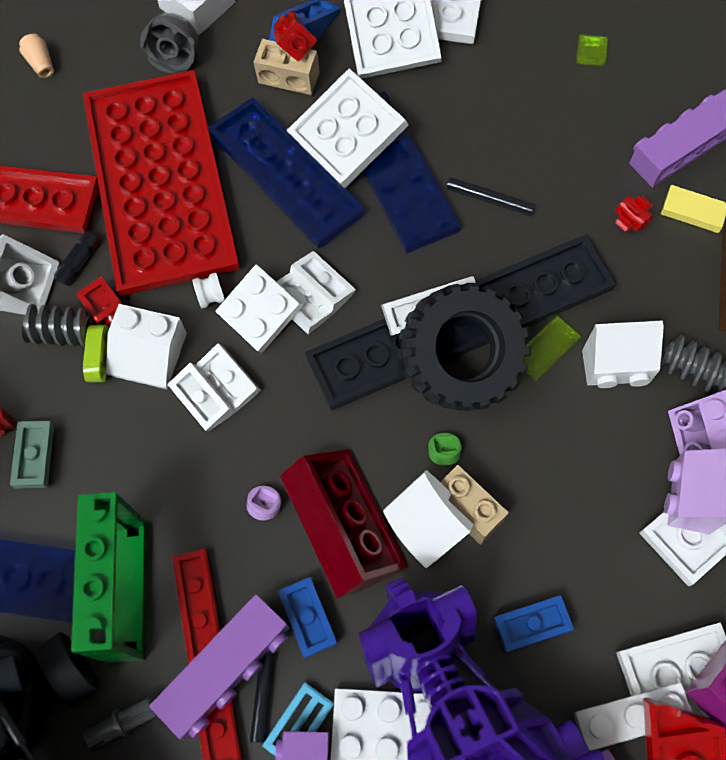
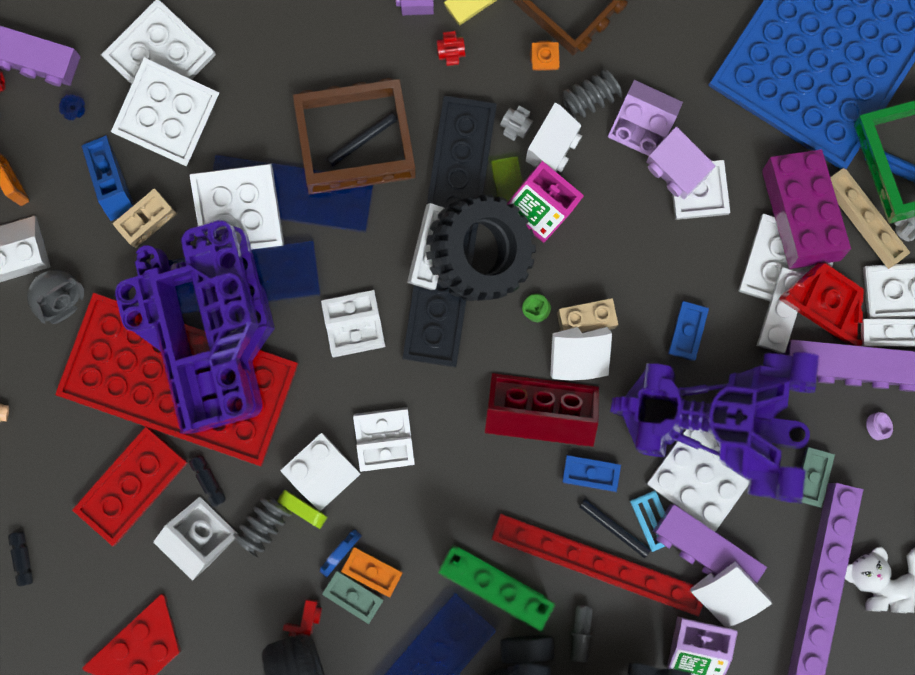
camera: 60 degrees left, 15 degrees up
(68, 457) = (372, 572): none -> orange plate
(73, 415) = (340, 552): none -> blue tile
(99, 301) = (262, 482): red bracket -> none
(208, 290) = (304, 398): white wheel -> none
(217, 156) = (232, 344): none -> dark purple connector
(219, 669) = (591, 548): medium lavender brick -> none
(259, 308) = (344, 370): white plate -> none
(263, 503) = (494, 455): lavender tile -> none
(293, 36) = (133, 201): red bracket -> none
(458, 208) = (361, 175): none -> reddish brown window
(557, 383) = (545, 200): none -> slope
(612, 310) = (516, 123): none -> light grey gear
(698, 295) = (544, 55): none -> orange bracket

